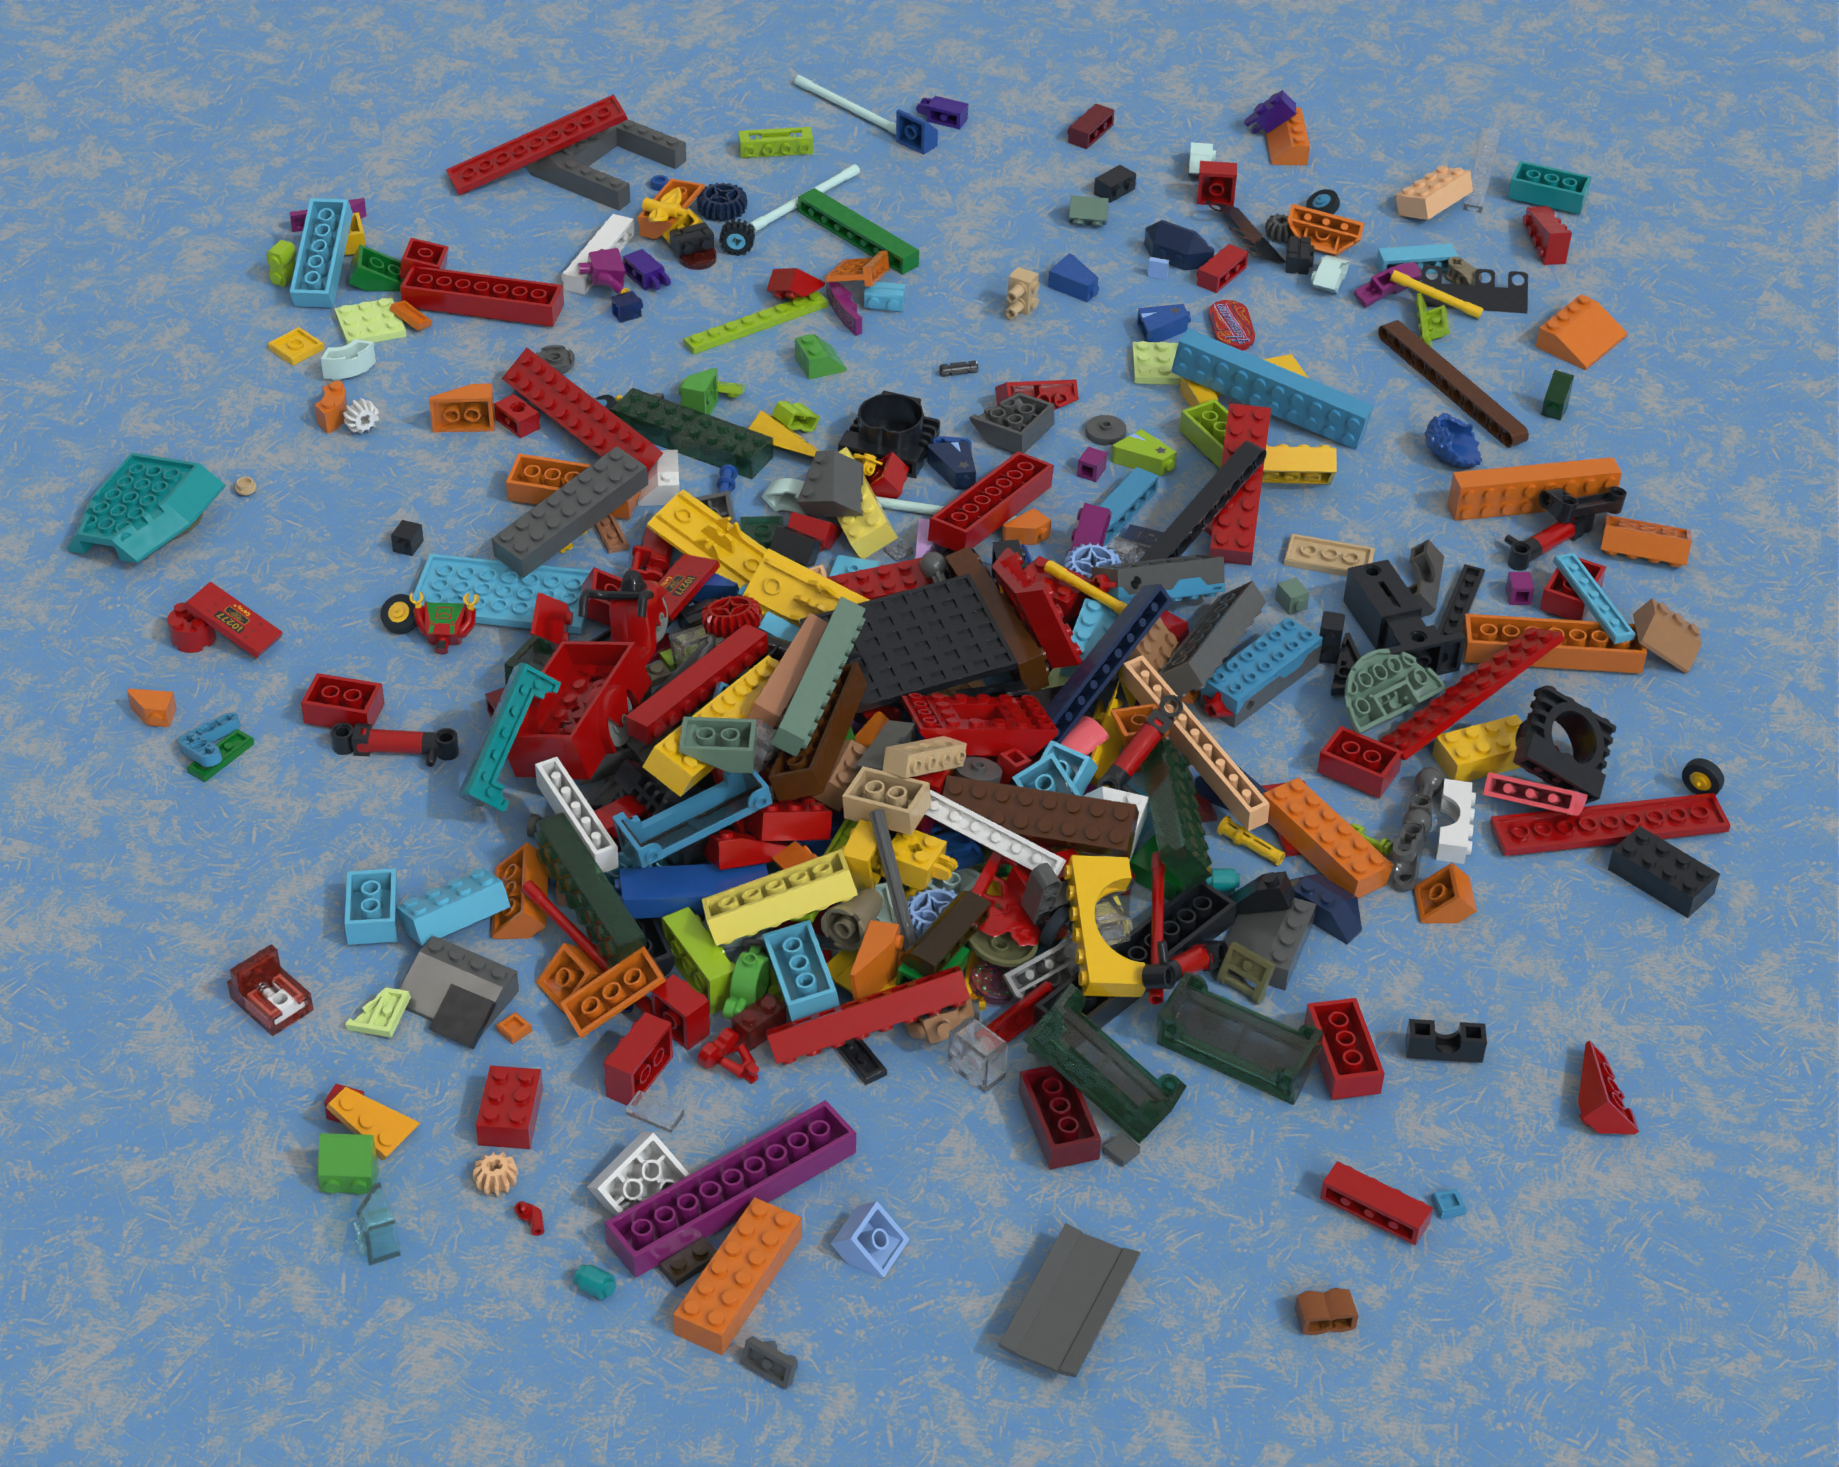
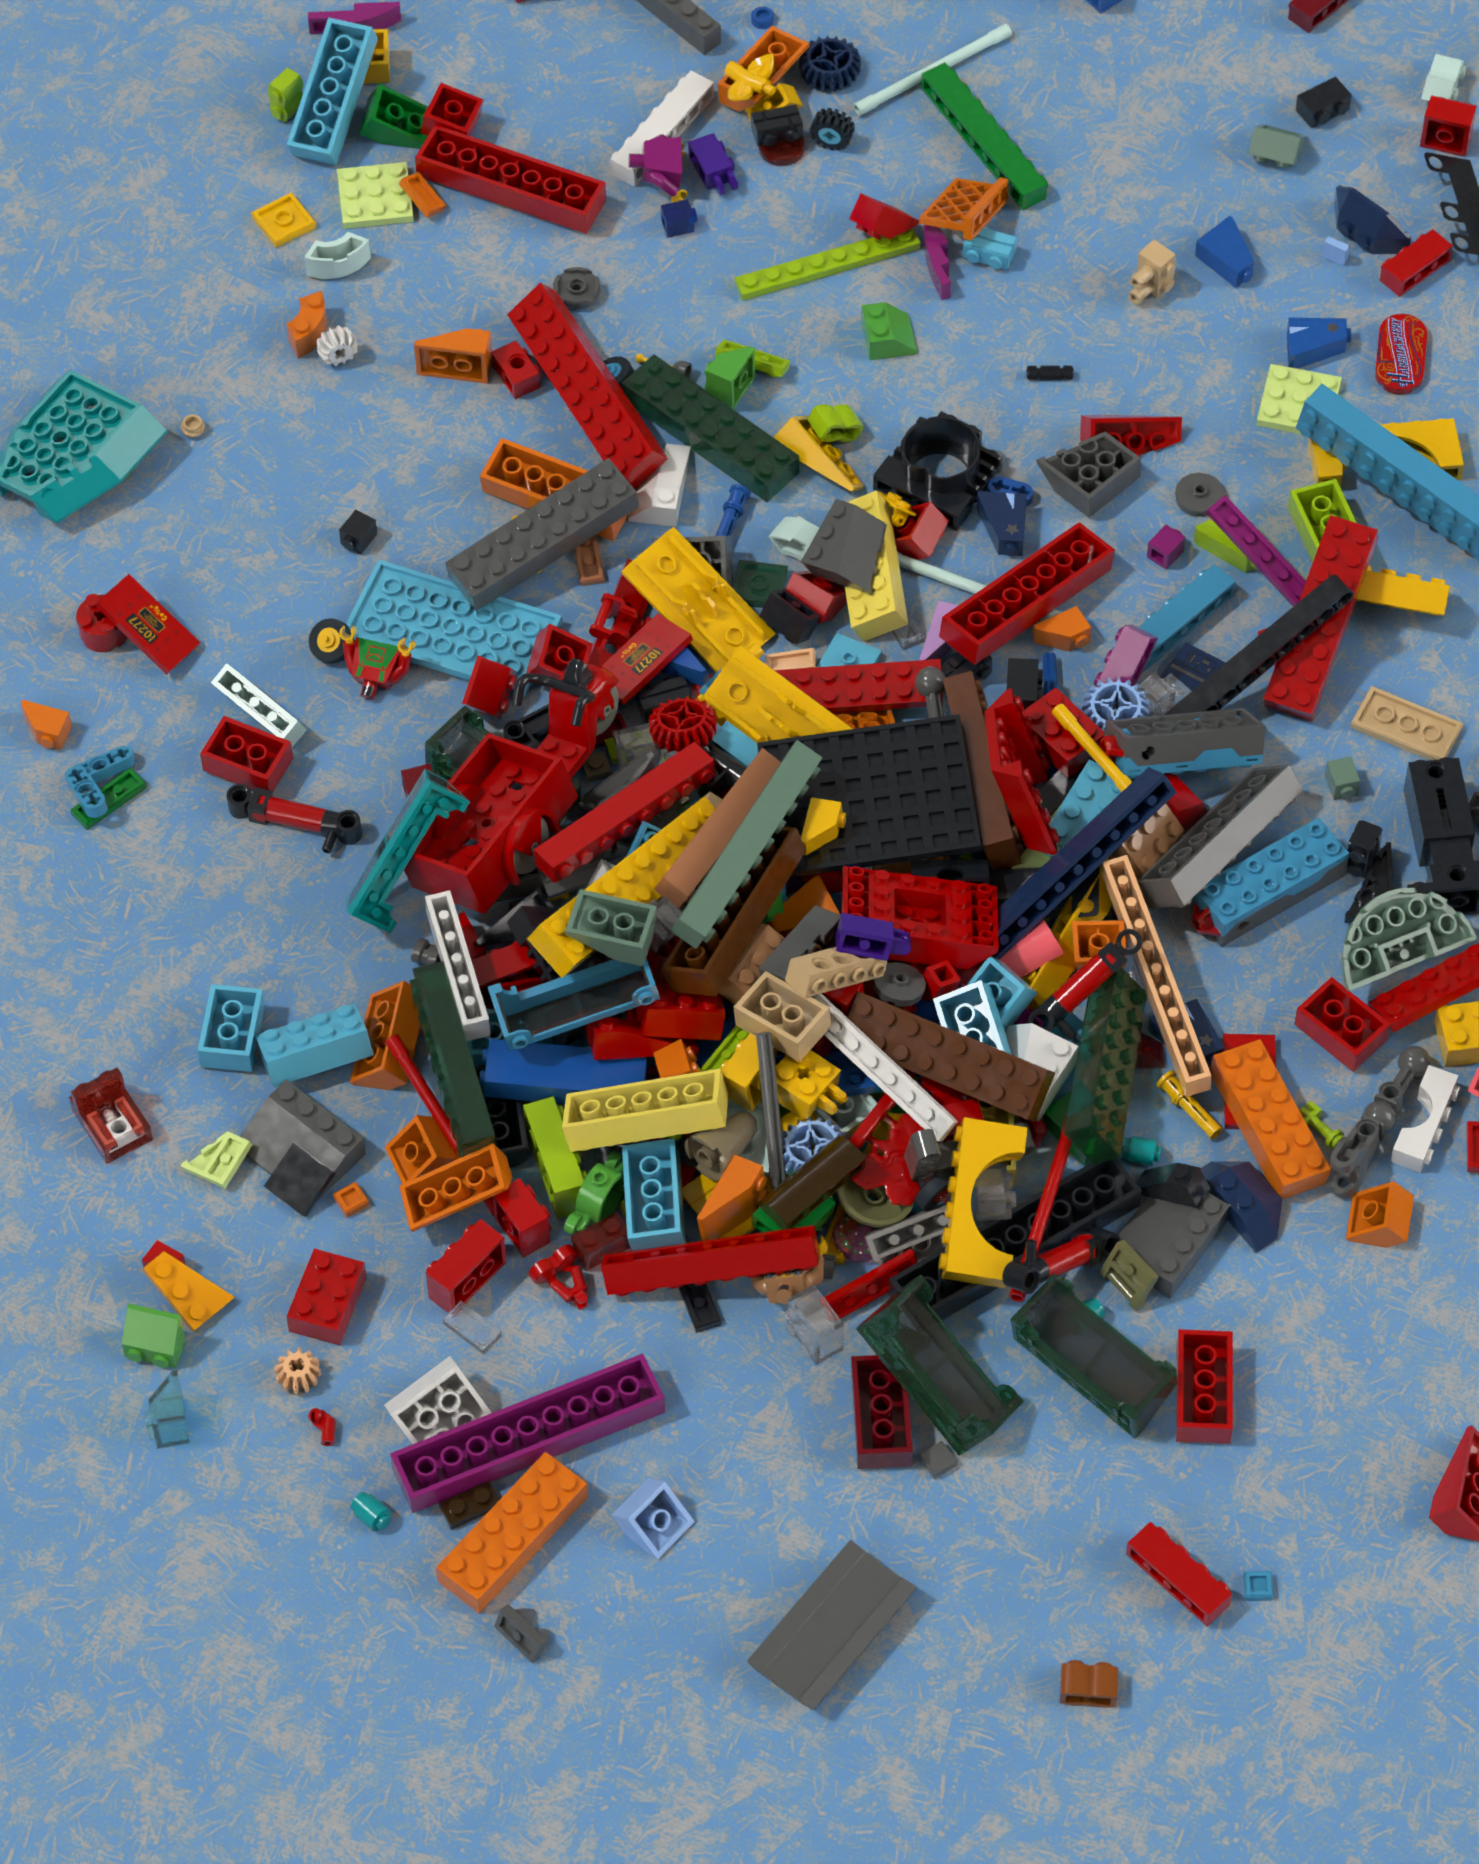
camera: 15 degrees right, 15 degrees up
(343, 663) = (258, 705): none -> light aqua brick
(876, 663) = (822, 823): none -> yellow slope
(947, 729) = (870, 937): none -> dark purple hinge
(1168, 449) = (1257, 549): none -> magenta plate
(1464, 1045) = (1332, 1404): black arch -> none

